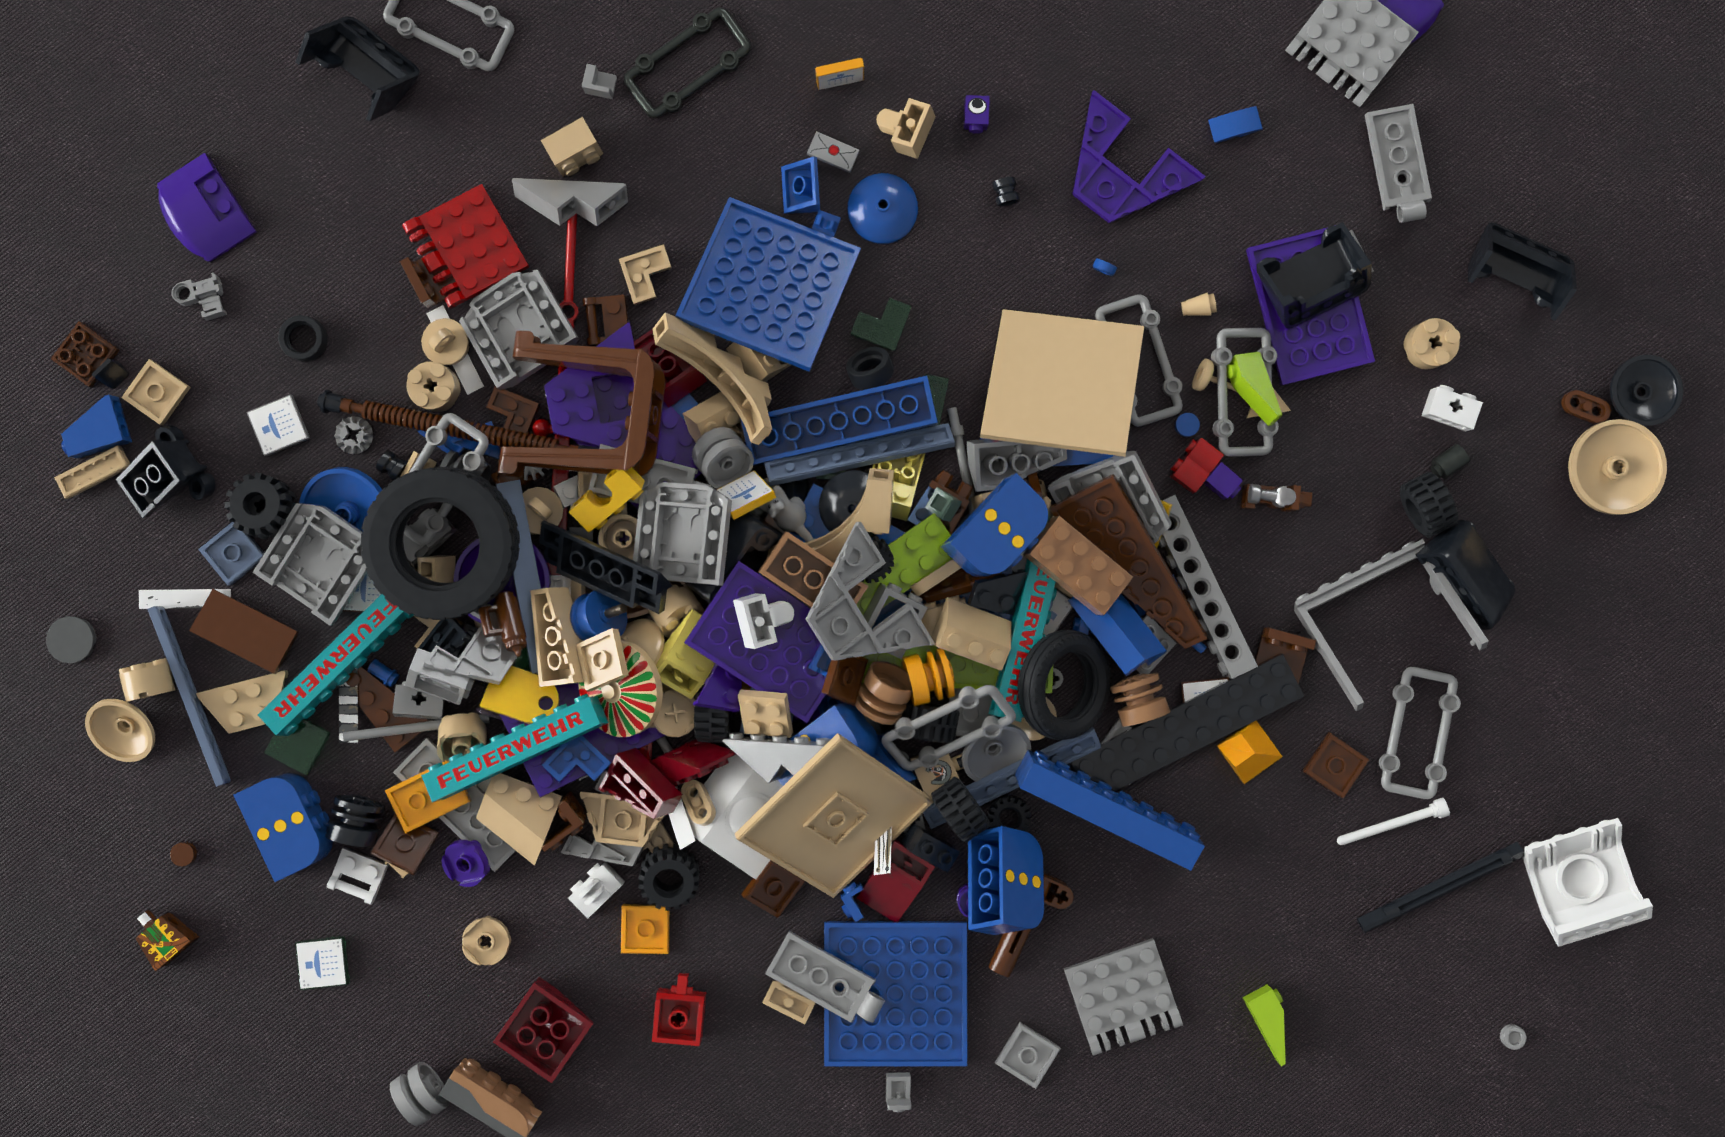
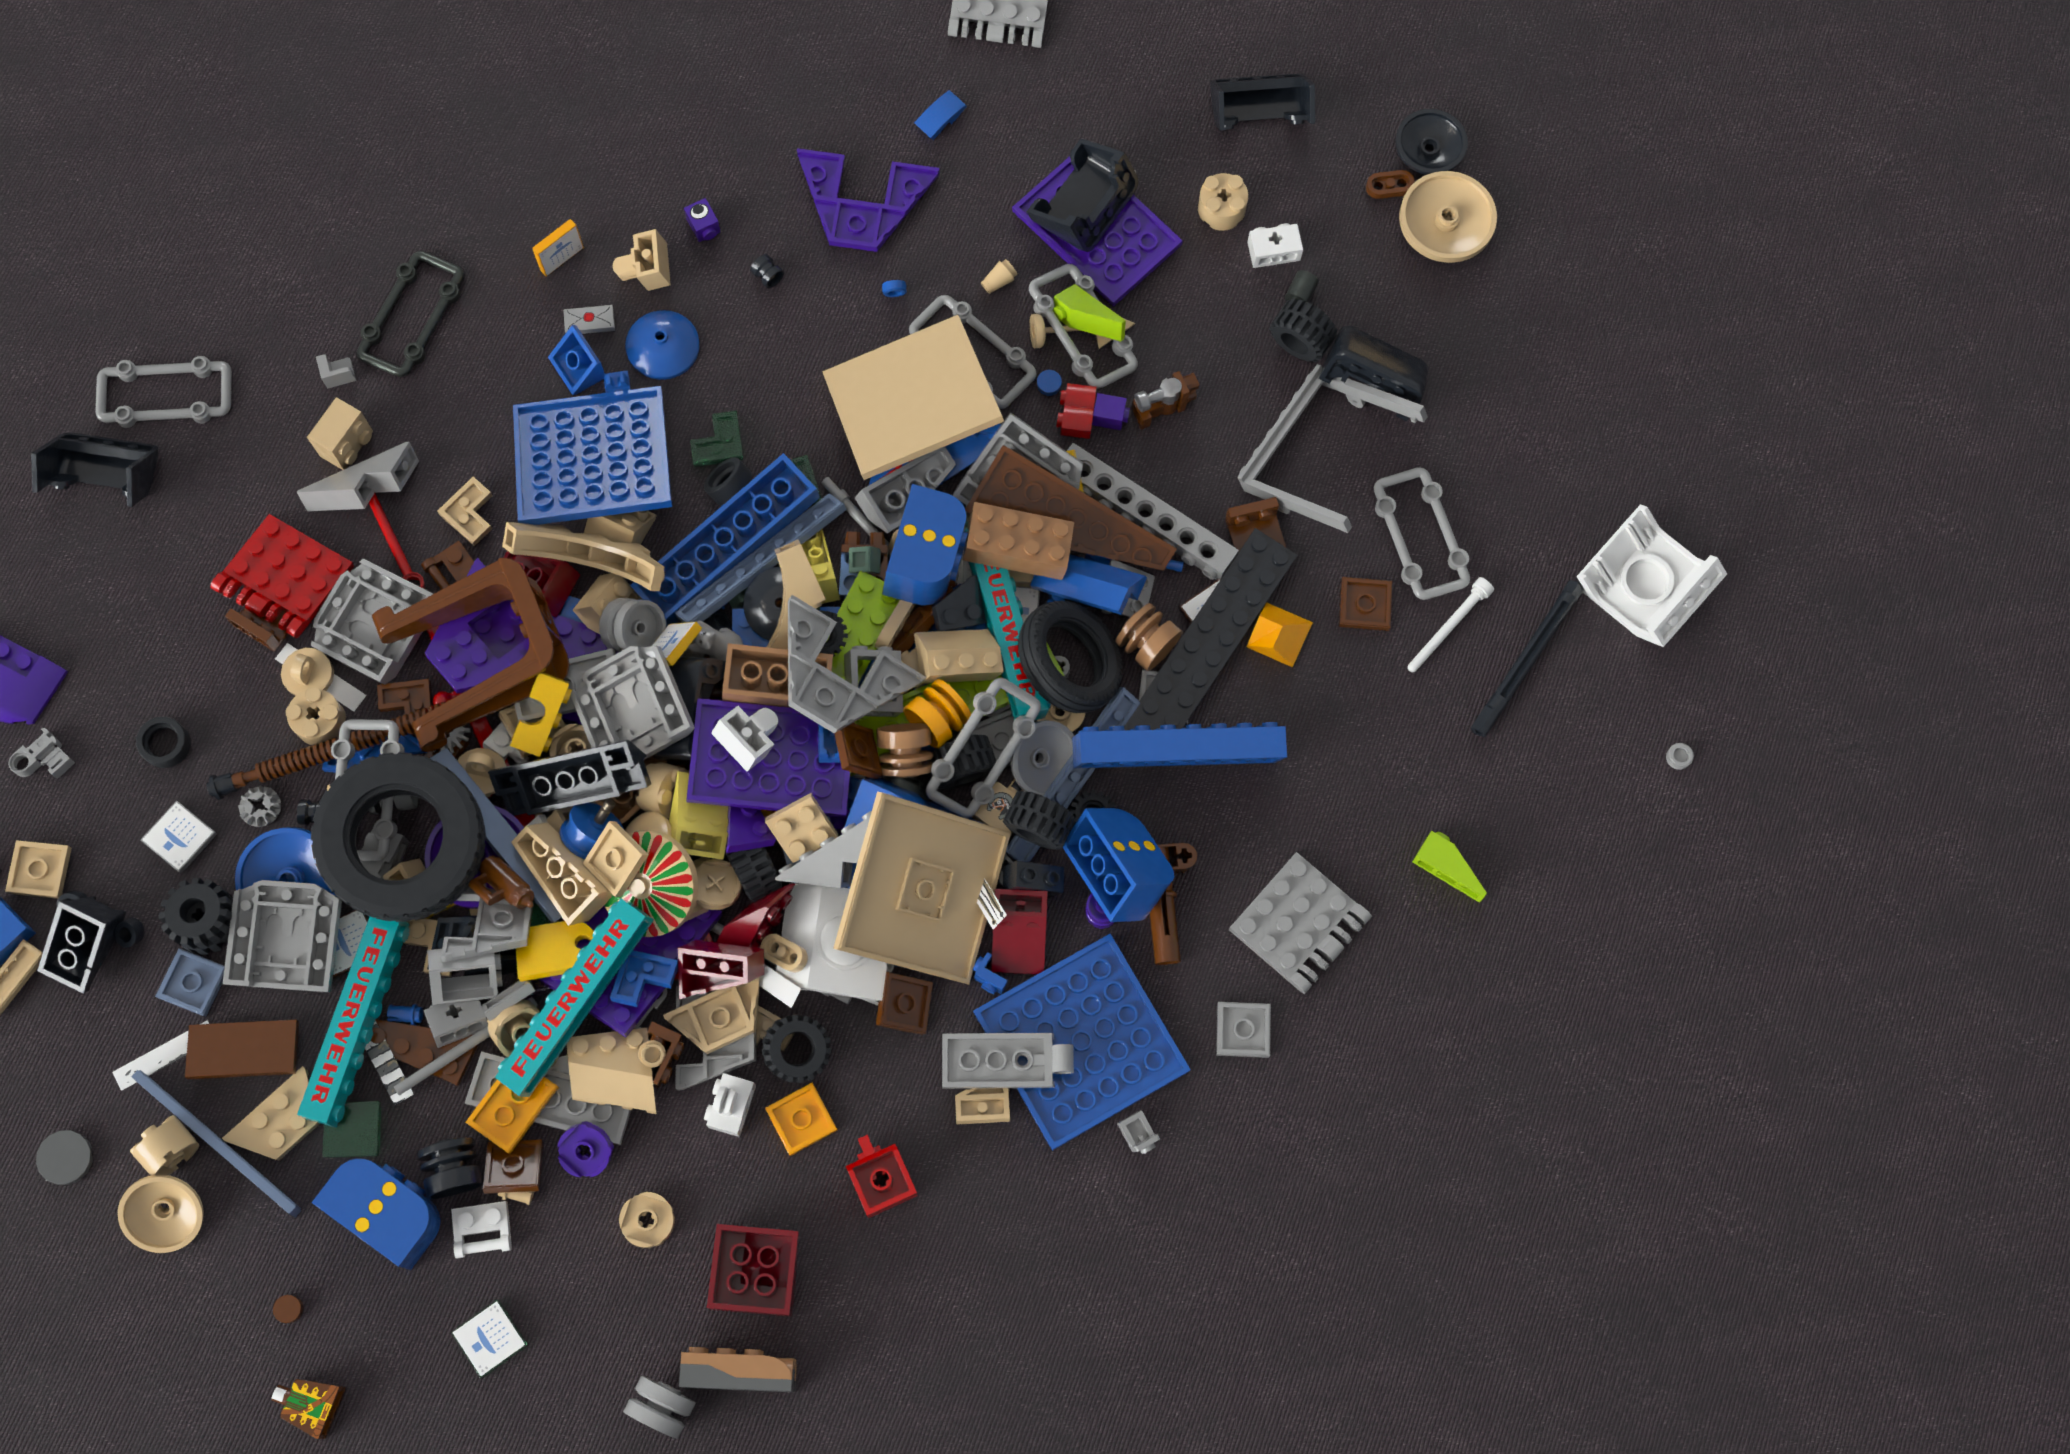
camera: 30 degrees left, 15 degrees down
(463, 713) = (507, 998): none -> light grey tile
(552, 825) = (651, 1053): none -> tan plate
(1398, 152) = (1096, 66): light grey hinge -> none

